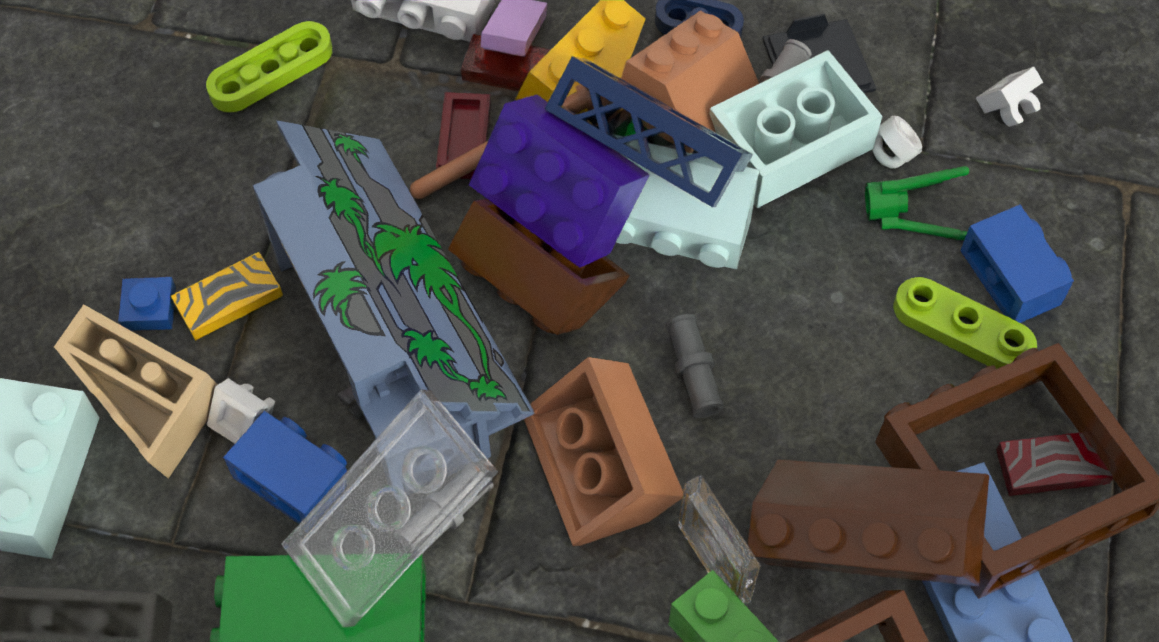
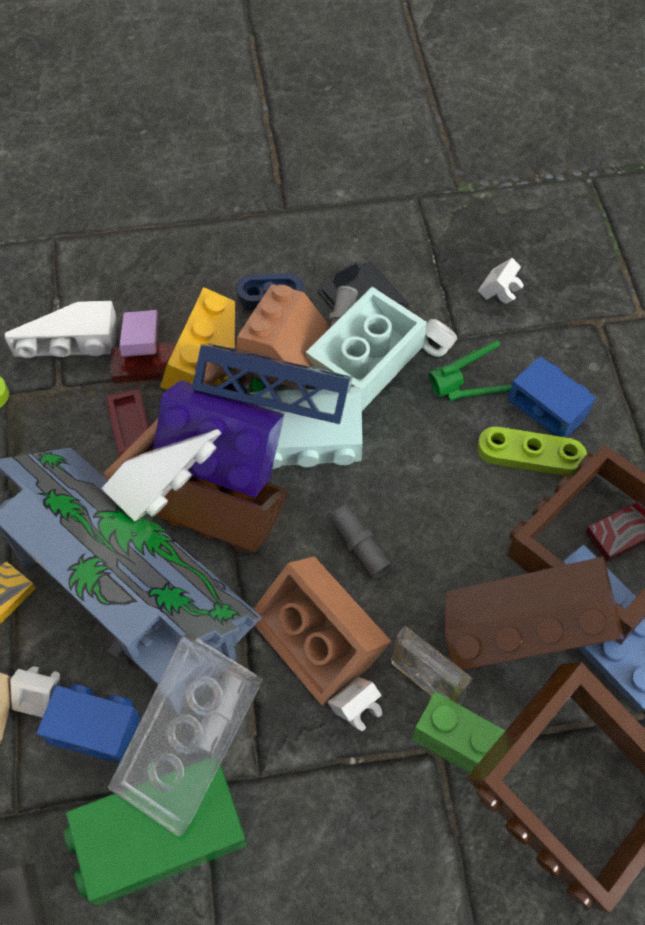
camera: 20 degrees left, 0 degrees up
(454, 202) = (147, 478): none -> white slope
(613, 550) = (354, 700): none -> white tile

